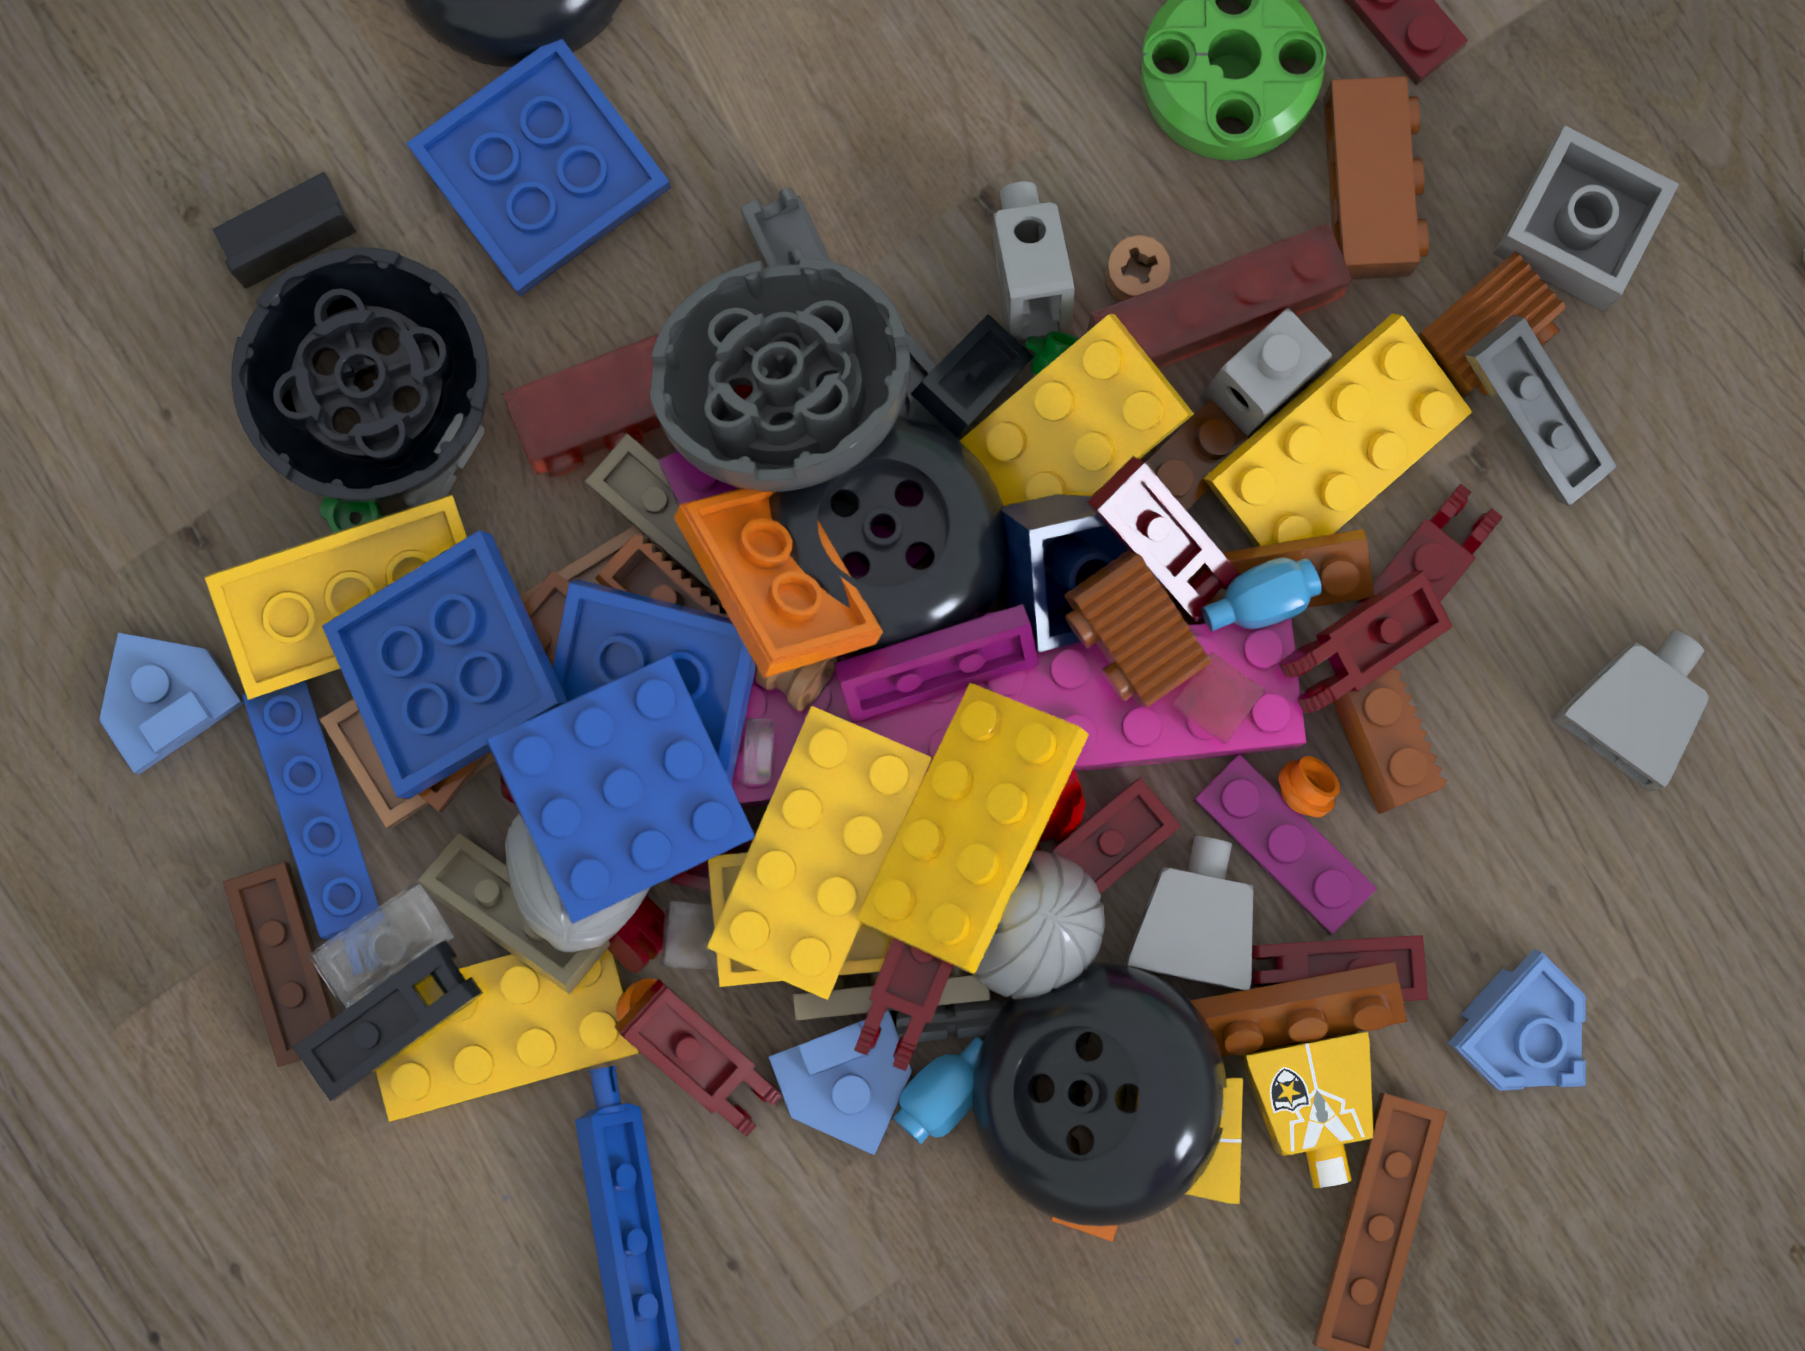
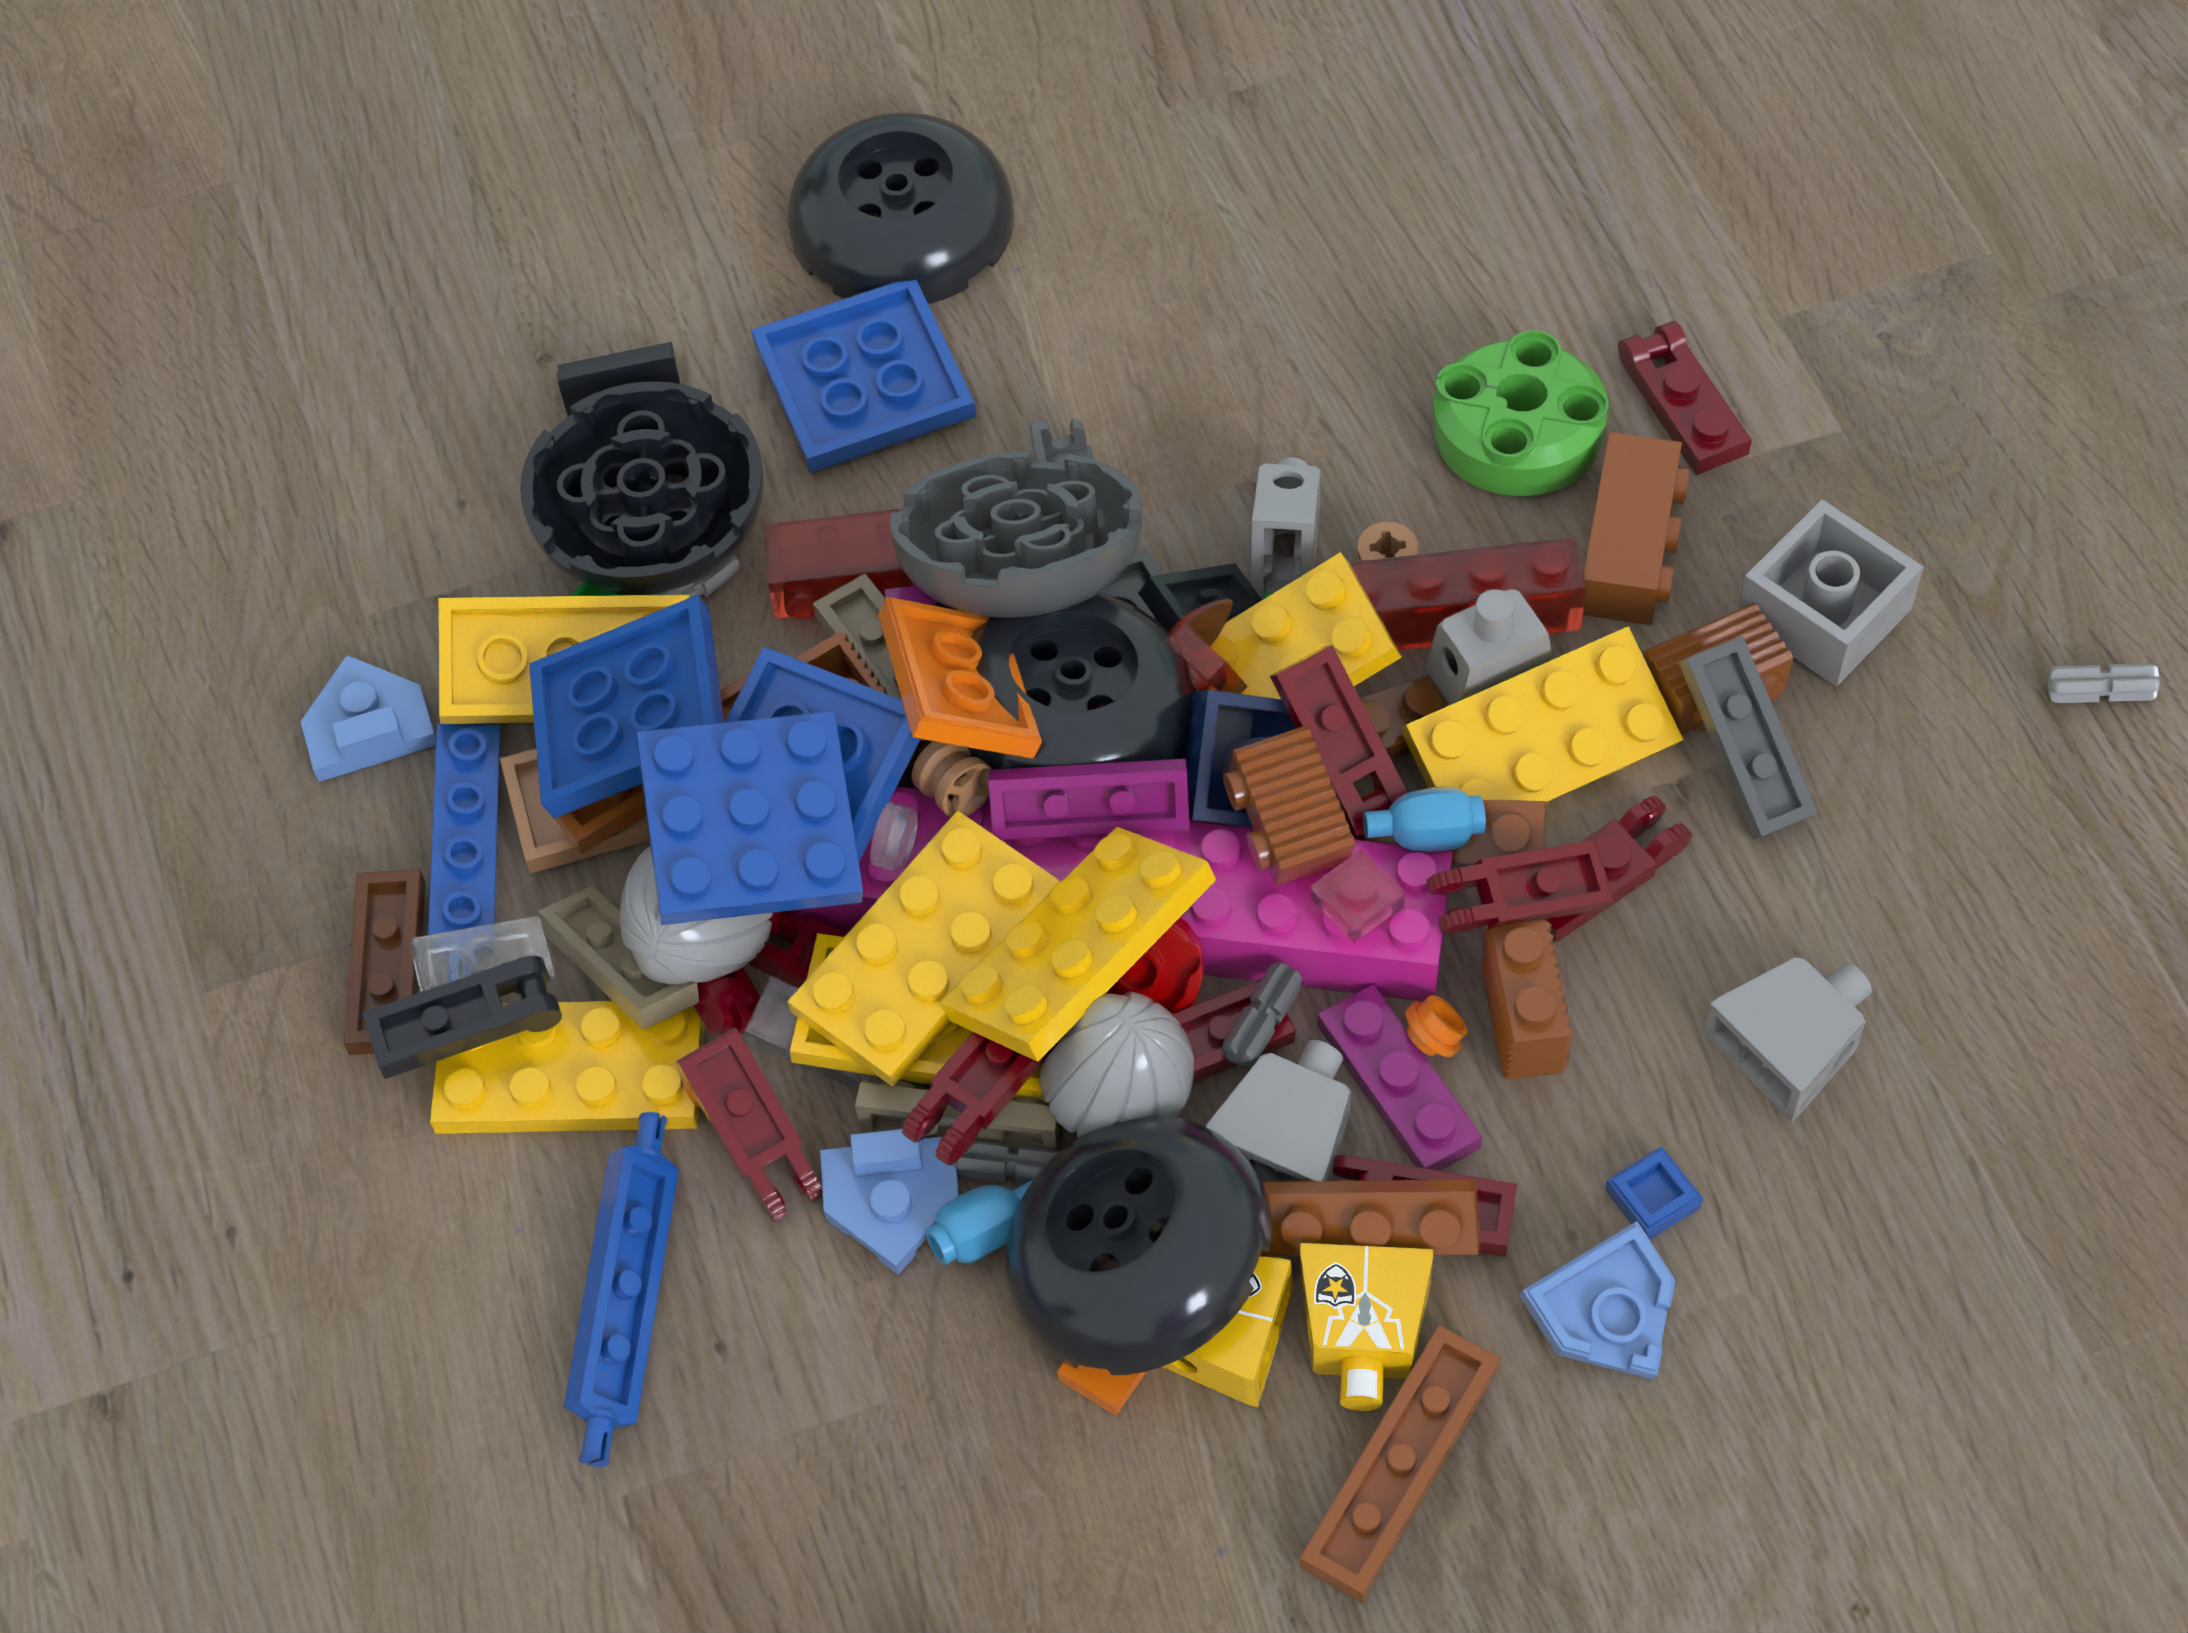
camera: 20 degrees right, 25 degrees down
(1004, 470) = (1193, 641): none -> clear red plate
(1153, 813) = (1257, 1021): none -> dark grey piece
(1542, 902) = (1654, 1193): none -> blue tile

